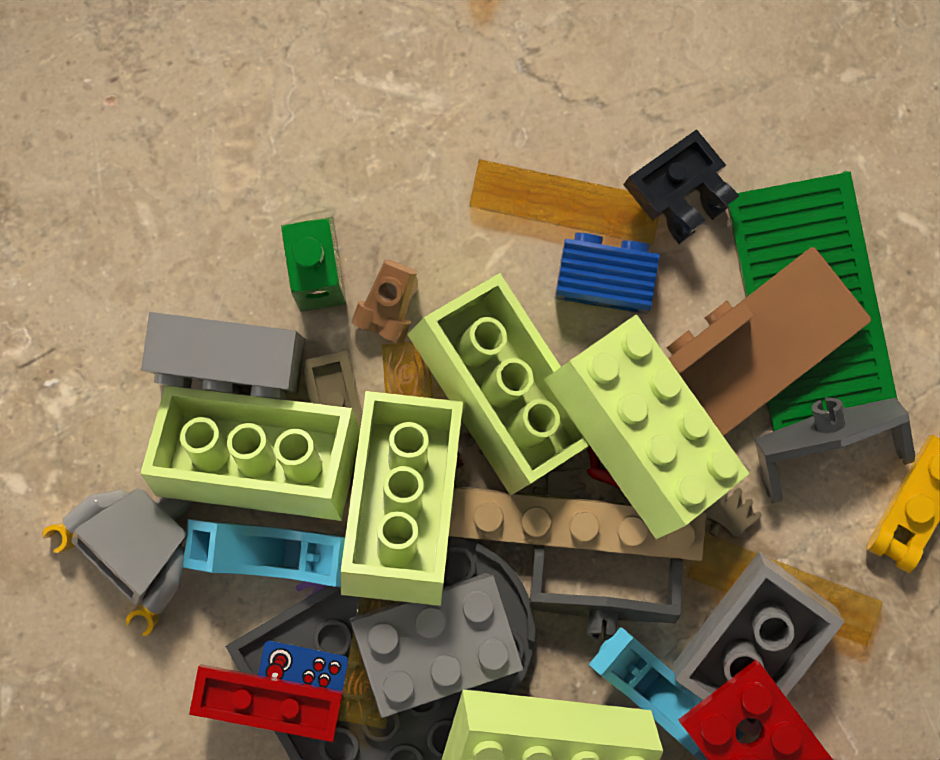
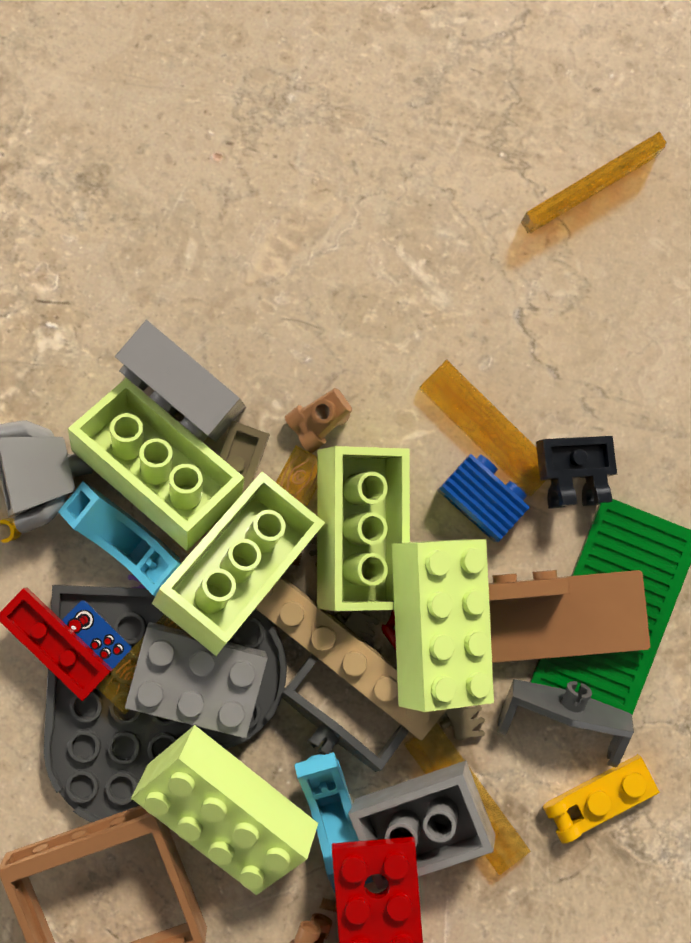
camera: 30 degrees right, 0 degrees up
(314, 263) = (284, 358): green torso -> none

